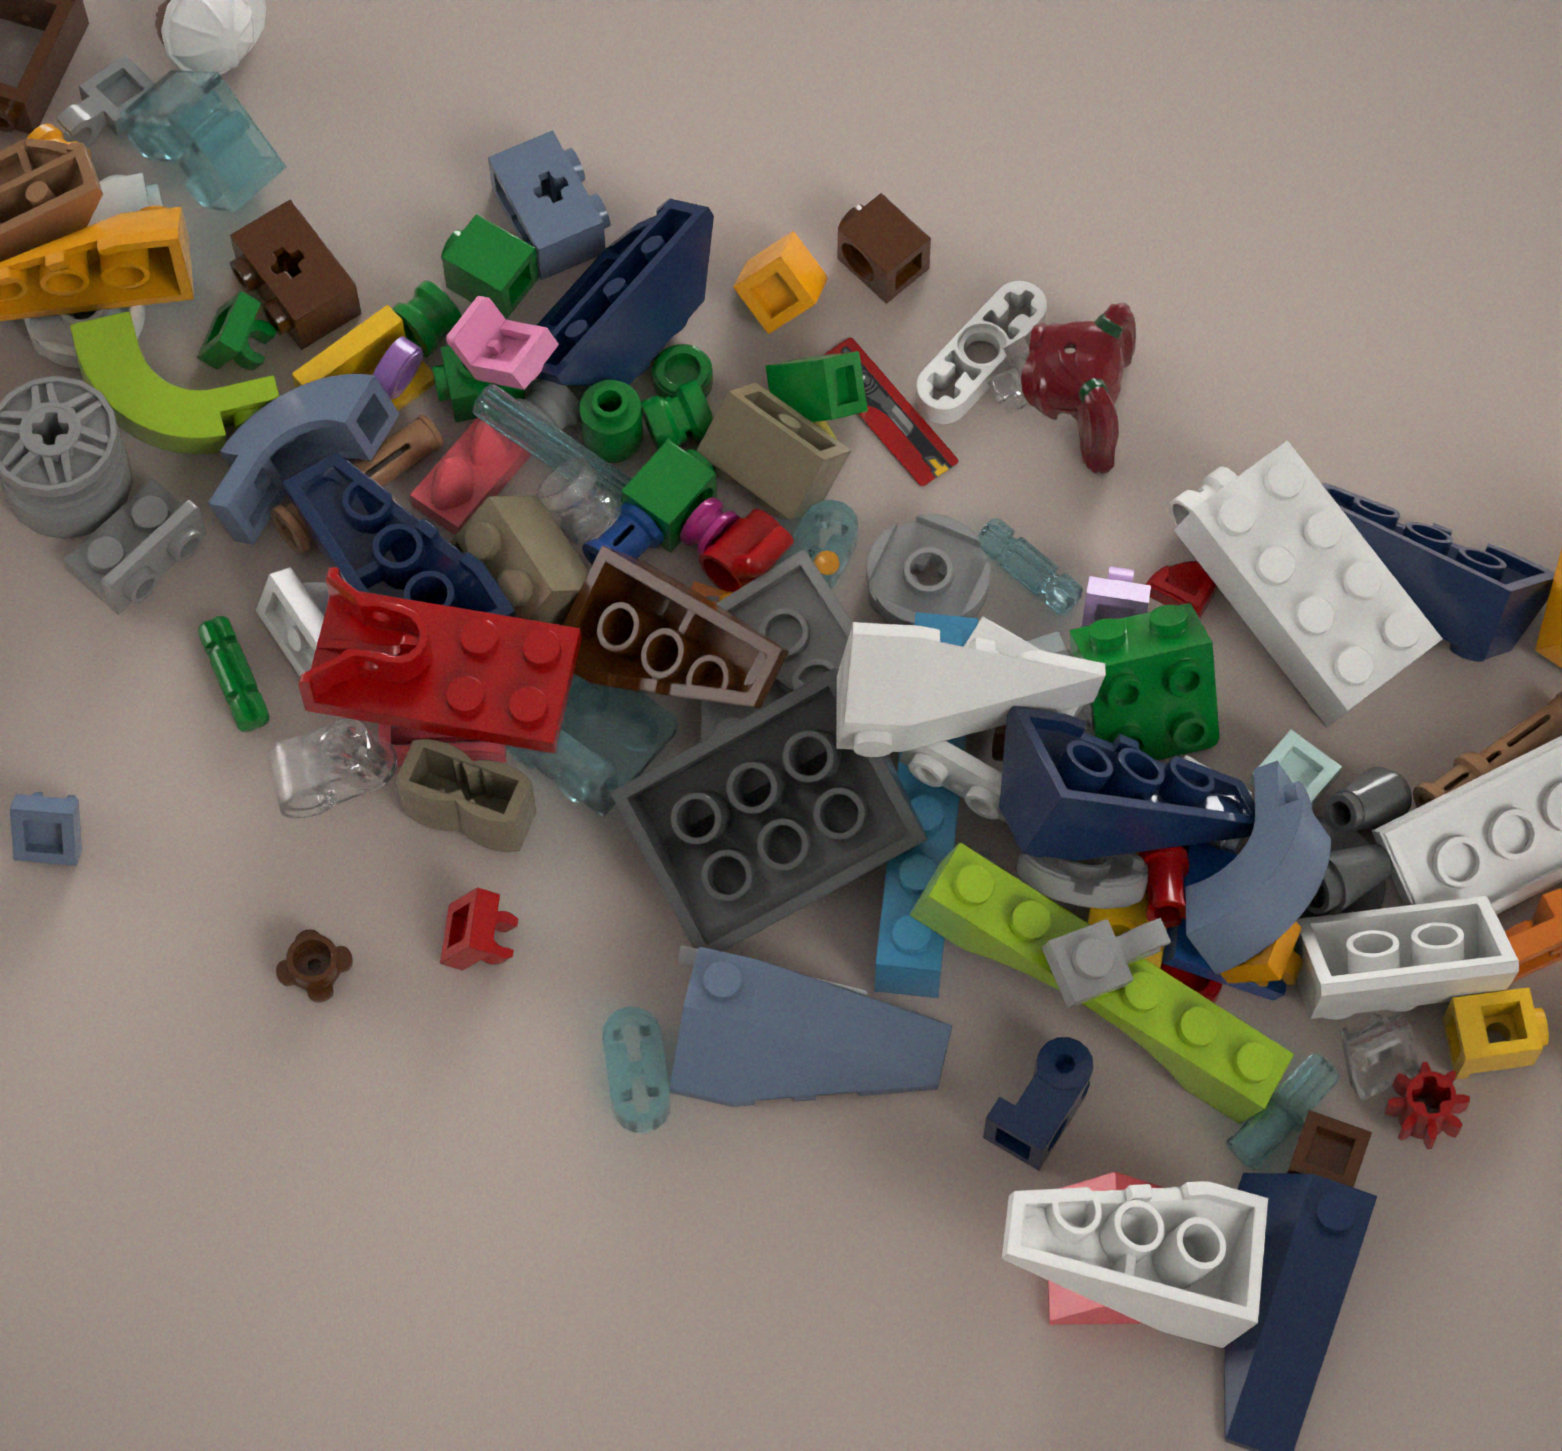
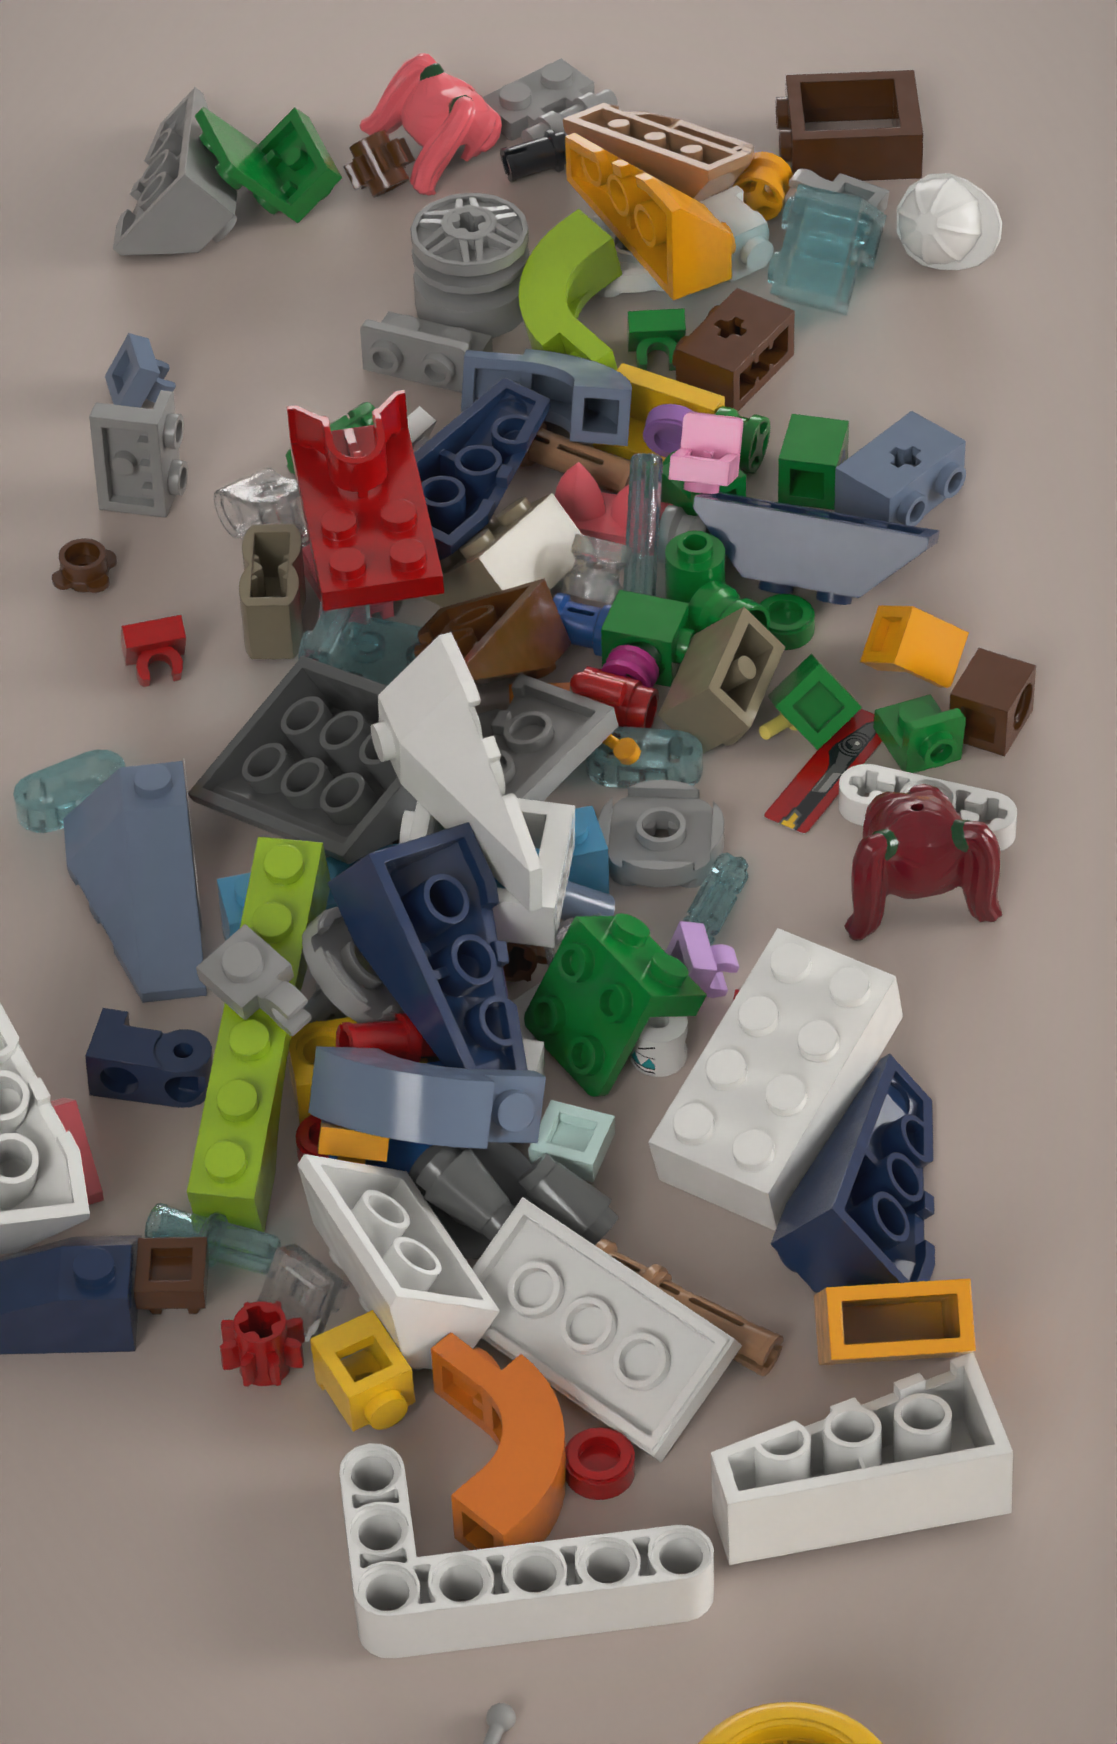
camera: 70 degrees right, 20 degrees down
(211, 857) = (138, 456): none -> light grey bracket
(889, 320) = (921, 733): none -> green bracket

